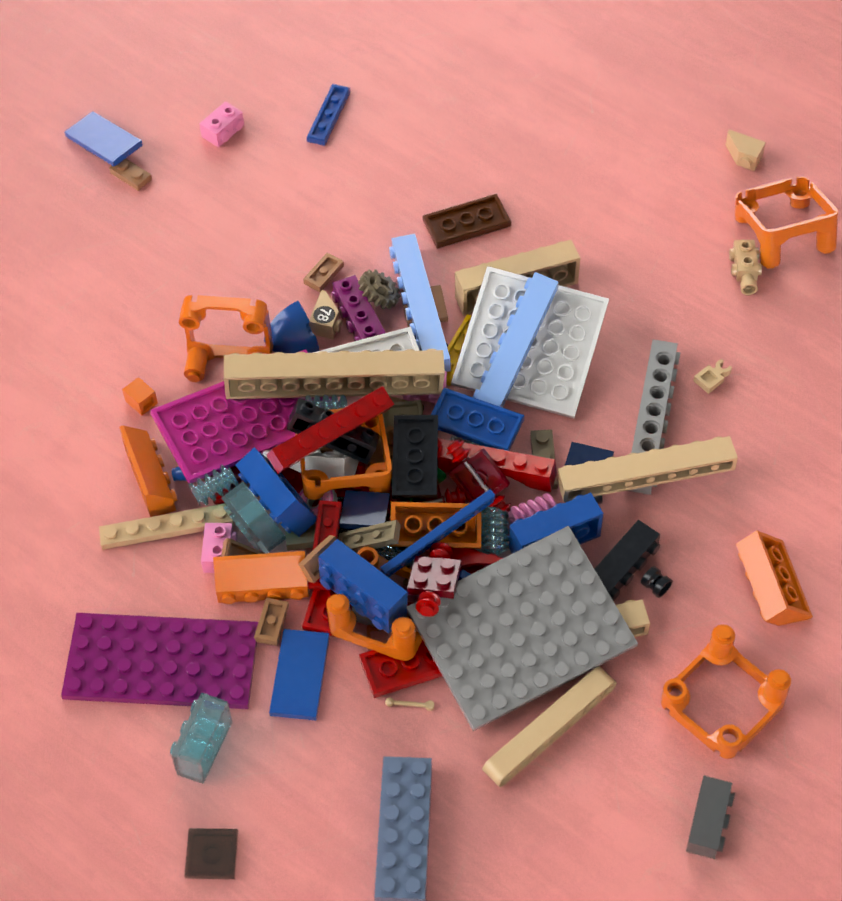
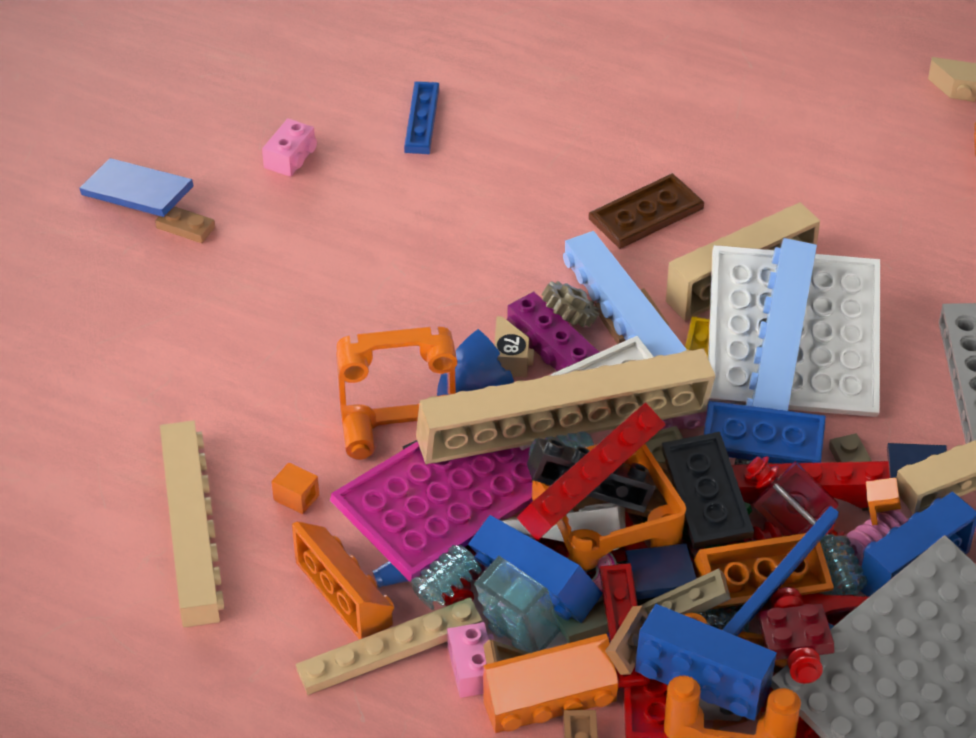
camera: 15 degrees left, 10 degrees down
(60, 408) = (189, 524): none -> tan brick
(323, 272) = (486, 298): medium nougat plate -> none
(540, 485) = (882, 496): none -> orange panel

